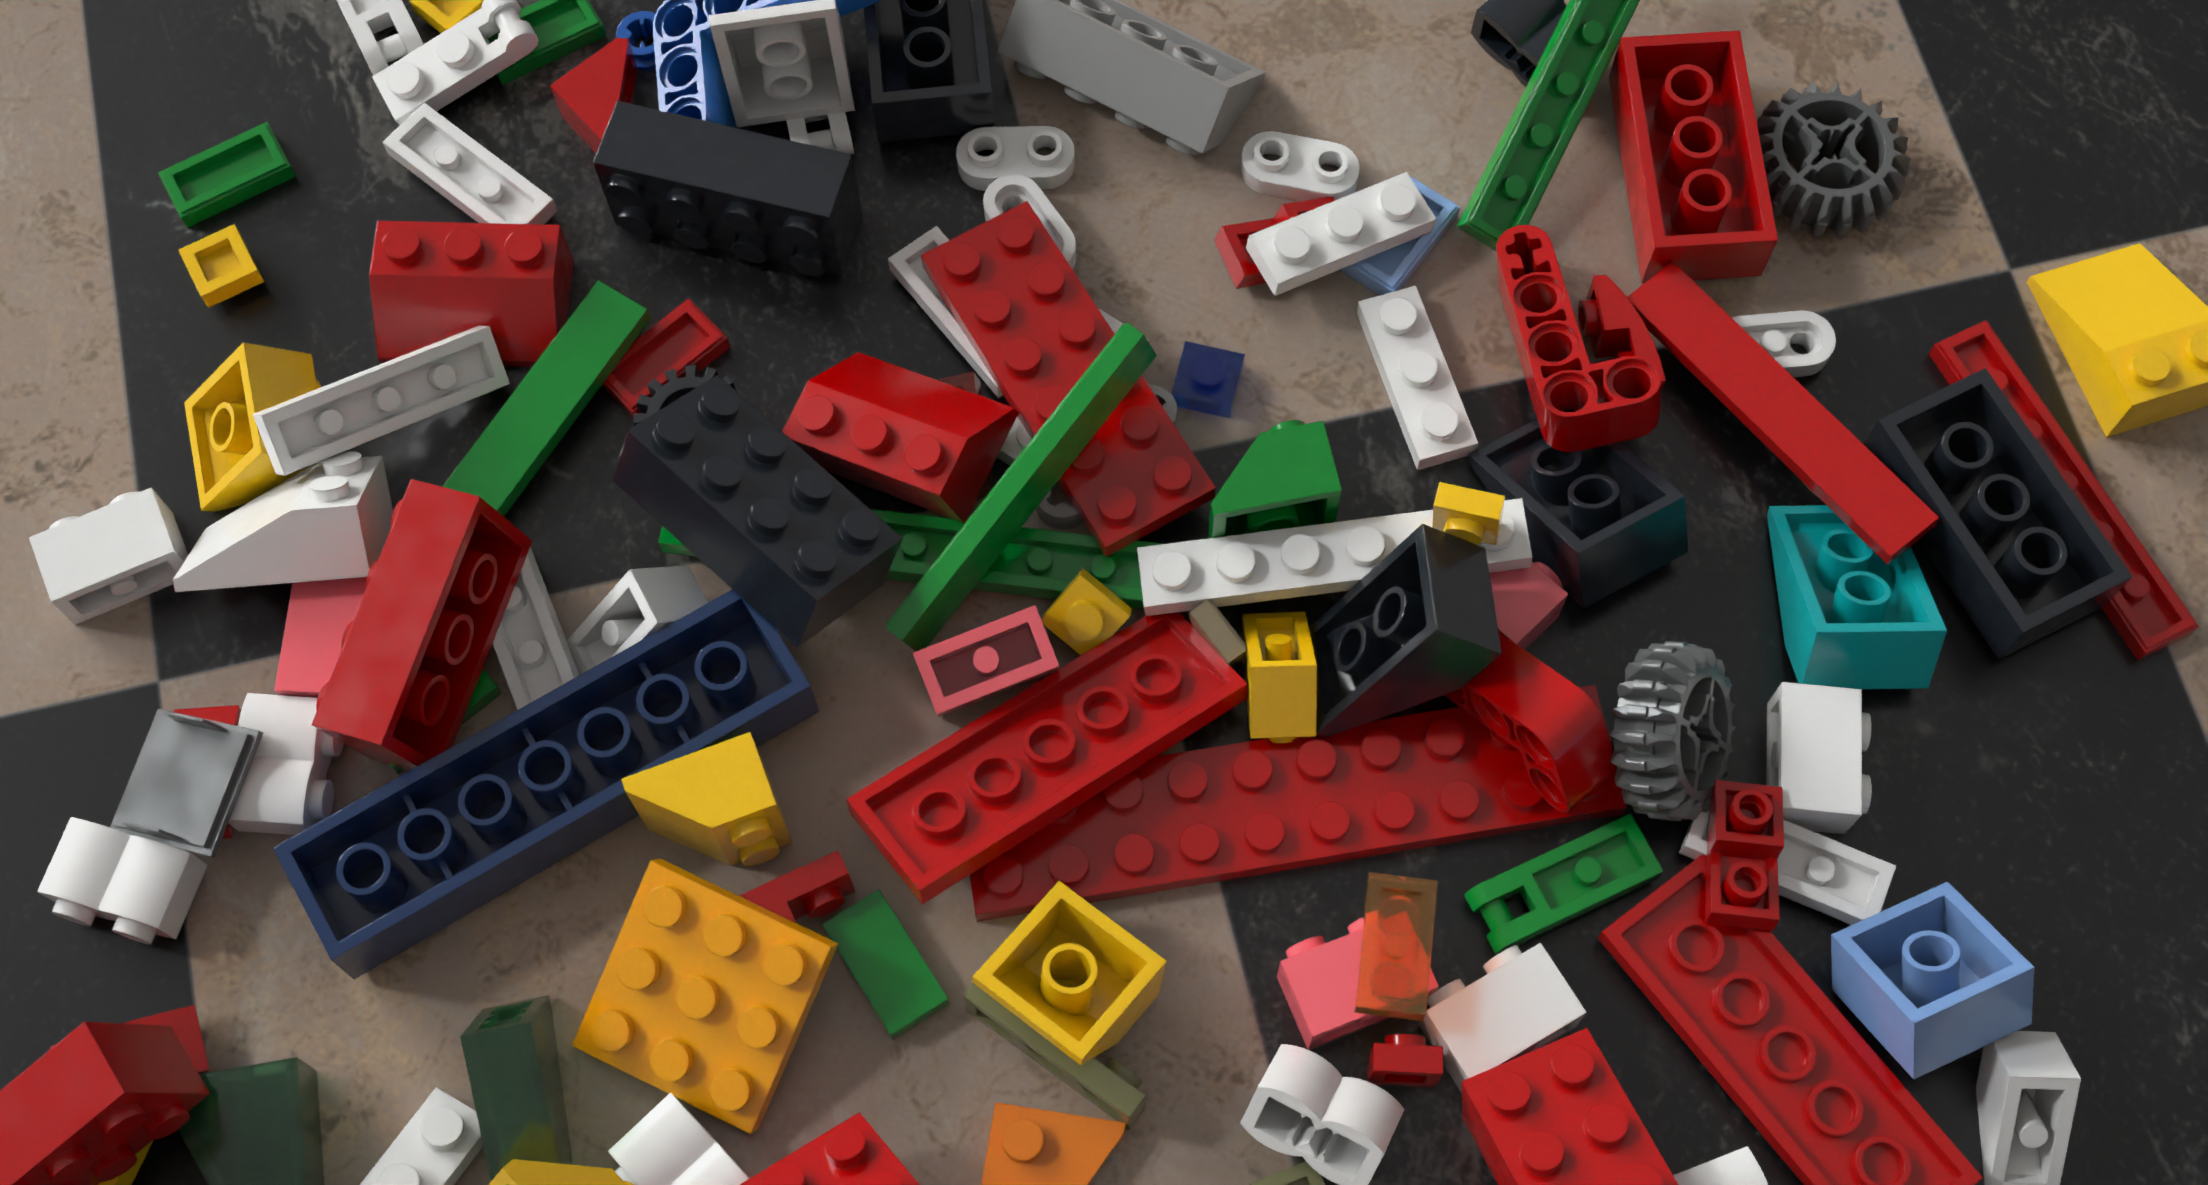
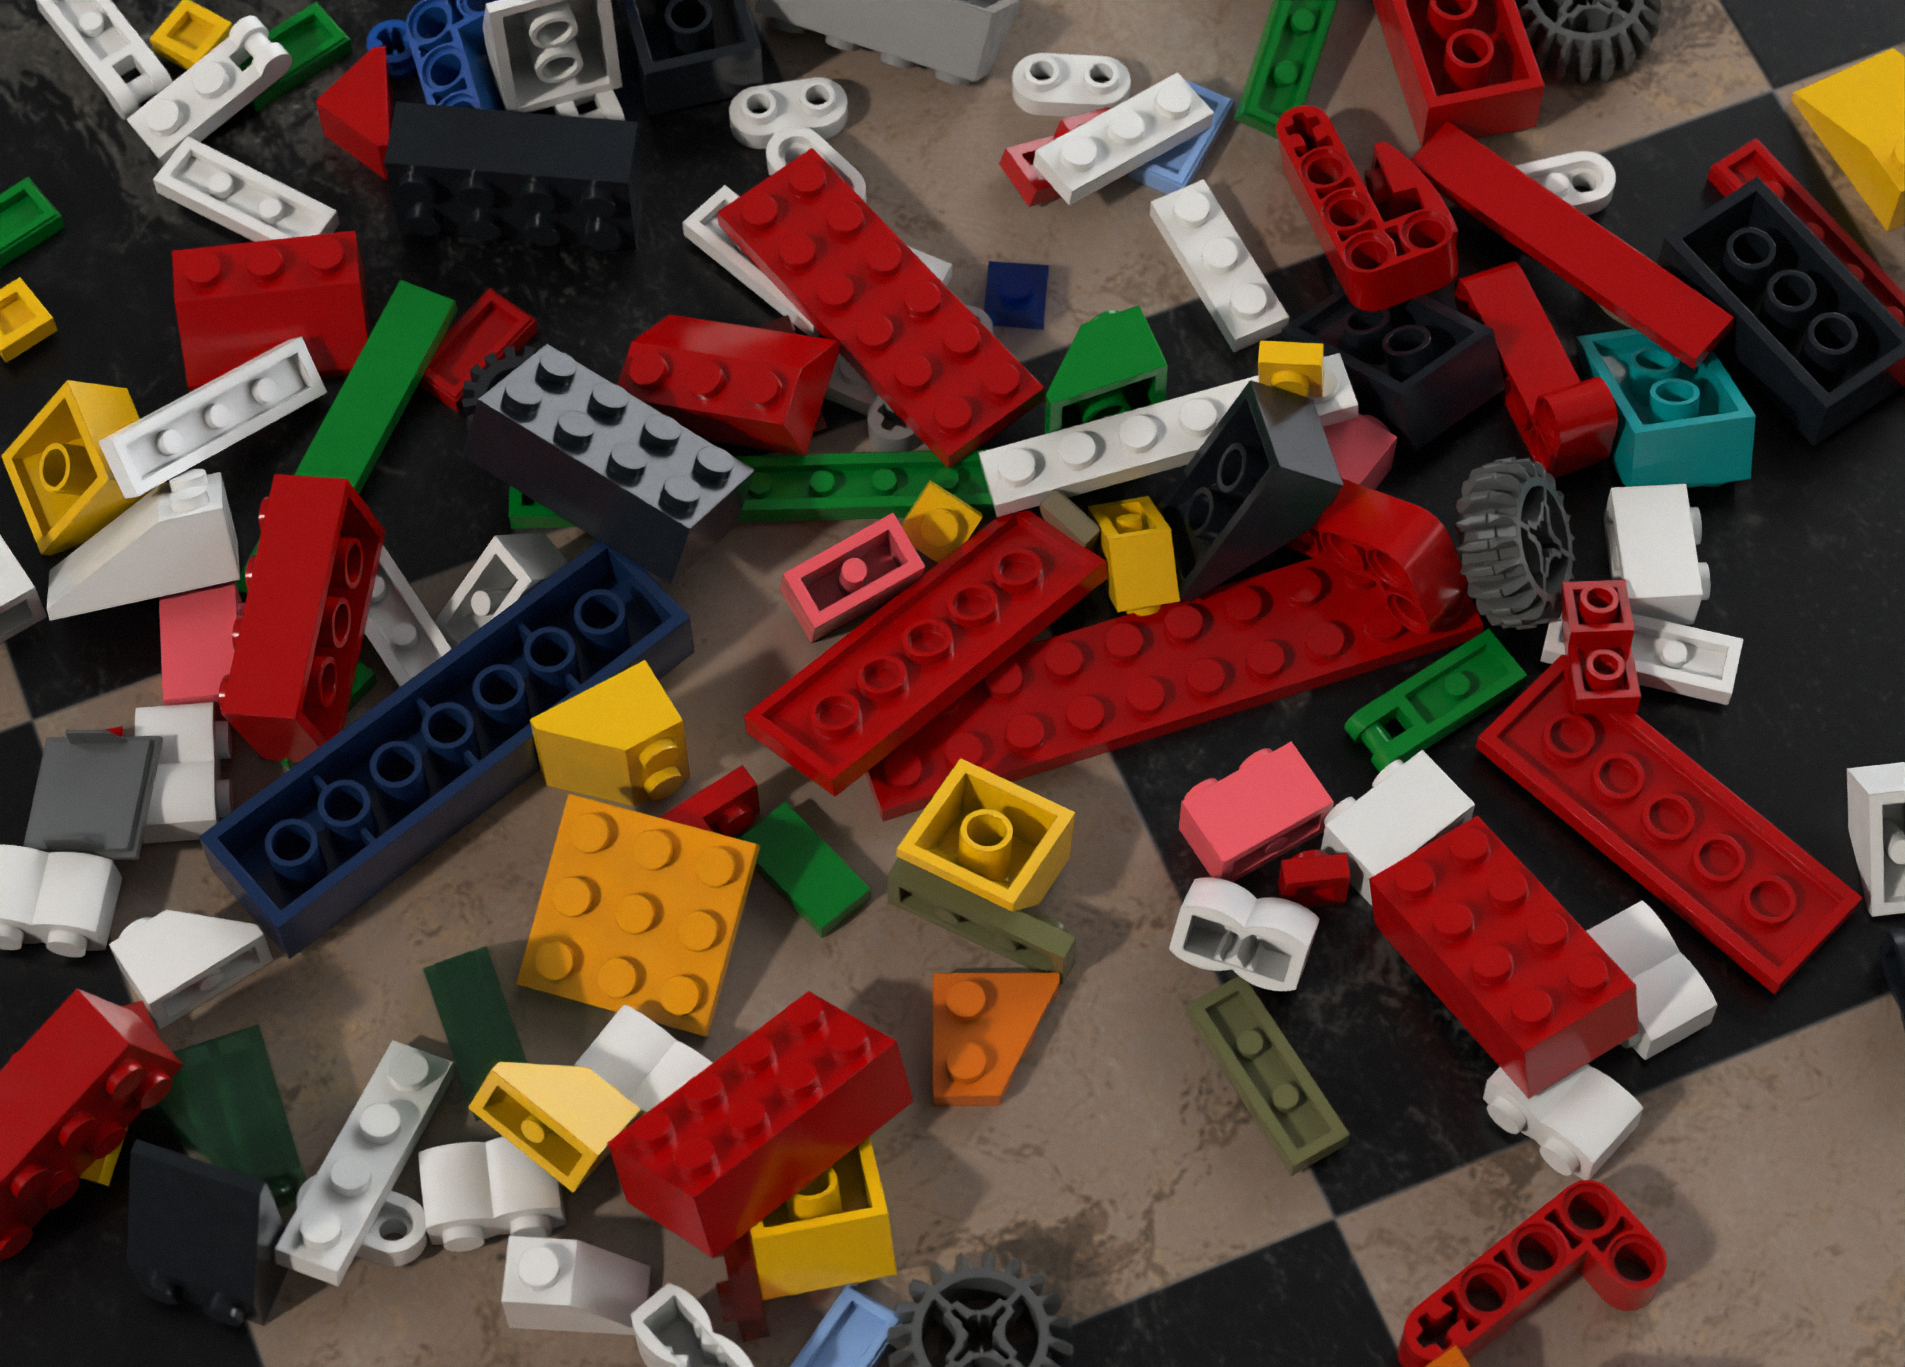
camera: 10 degrees left, 5 degrees down
(242, 969) = (186, 960): none -> white slope
(1022, 488) = (860, 410): green tile -> none
(1396, 946) = (1288, 767): clear orange plate -> none
(1736, 591) = (1558, 416): none -> red beam
(1932, 979) = (1788, 727): medium blue brick -> none

